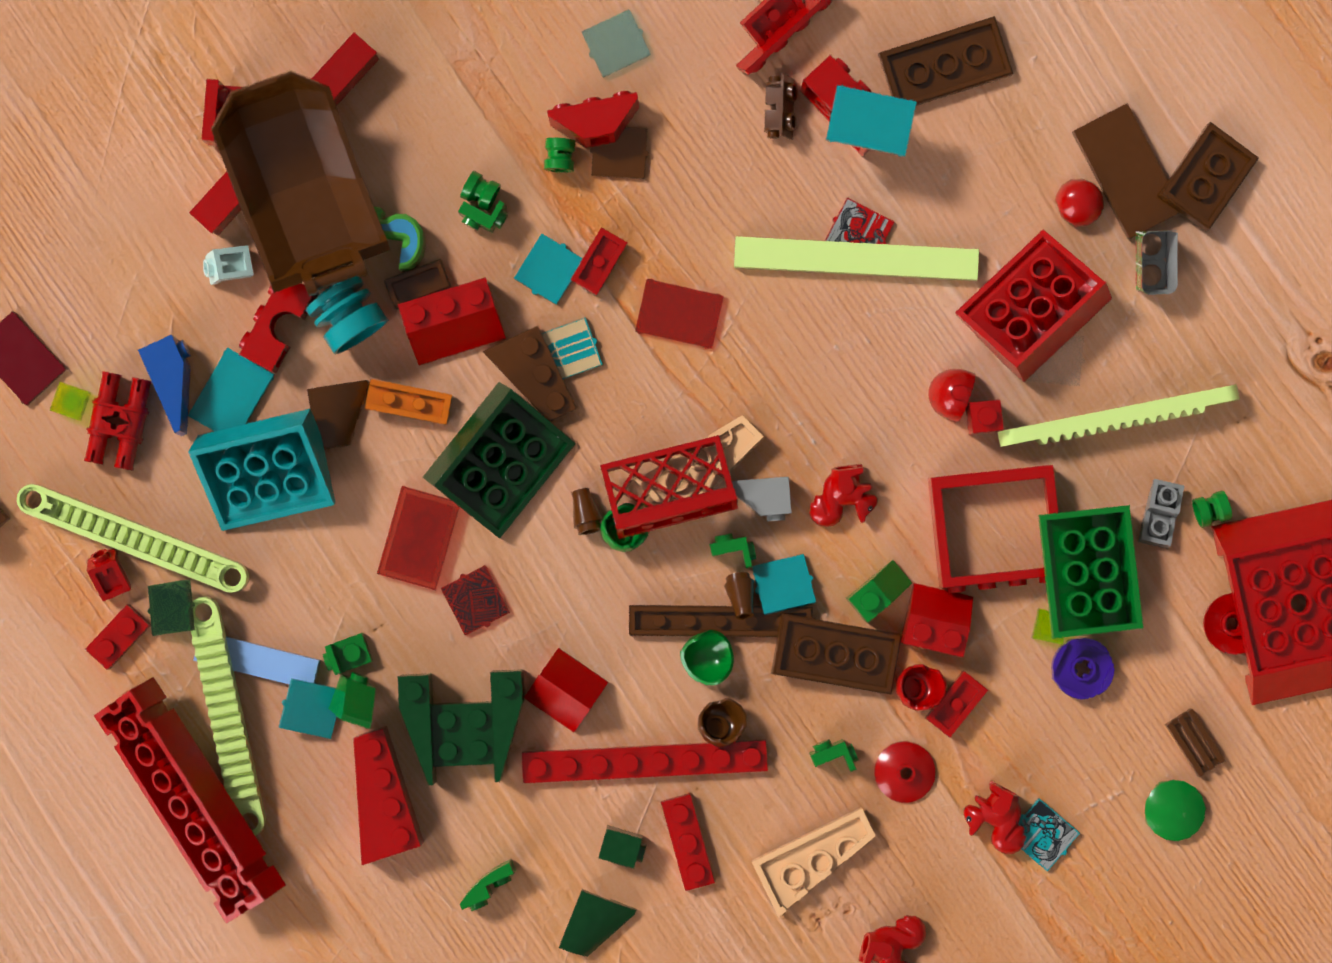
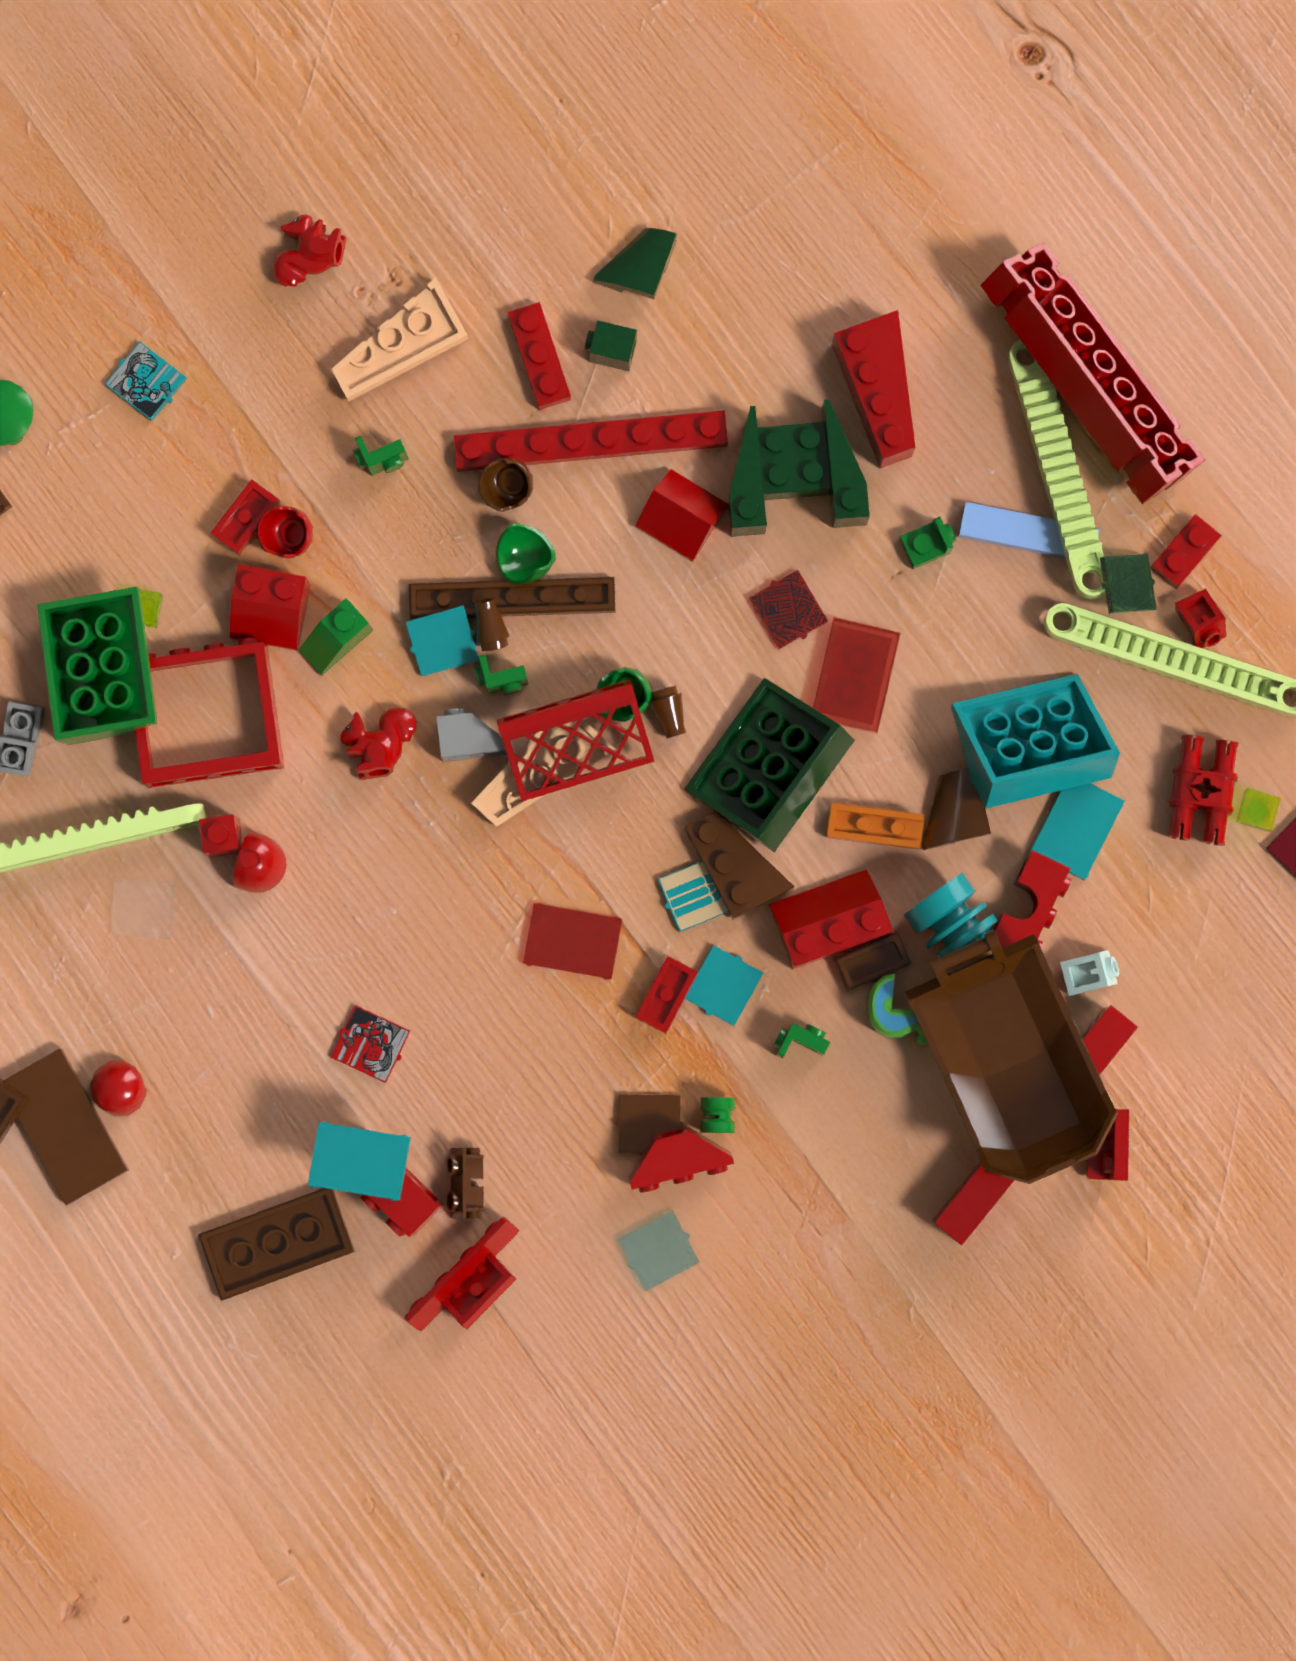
camera: 175 degrees right, 5 degrees down
(170, 375) = (1146, 840): blue slope -> none
(308, 709) = (965, 481): teal piece -> none
(354, 700) = (917, 488): green slope -> none
(481, 191) = (806, 1069): green wheel -> none
(481, 891) = (765, 290): green slope -> none
(836, 653) = (381, 566): reddish brown tile -> none
(856, 258) = (372, 1012): yellowish green tile -> none
(900, 756) = (303, 458): red dish -> none
(1003, 813) = (192, 402): red animal -> none
(1034, 305) = (167, 967): red slope -> none
(1089, 684) = (98, 545): dark purple plate -> none
(1169, 269) = (14, 1015): light grey piece -> none

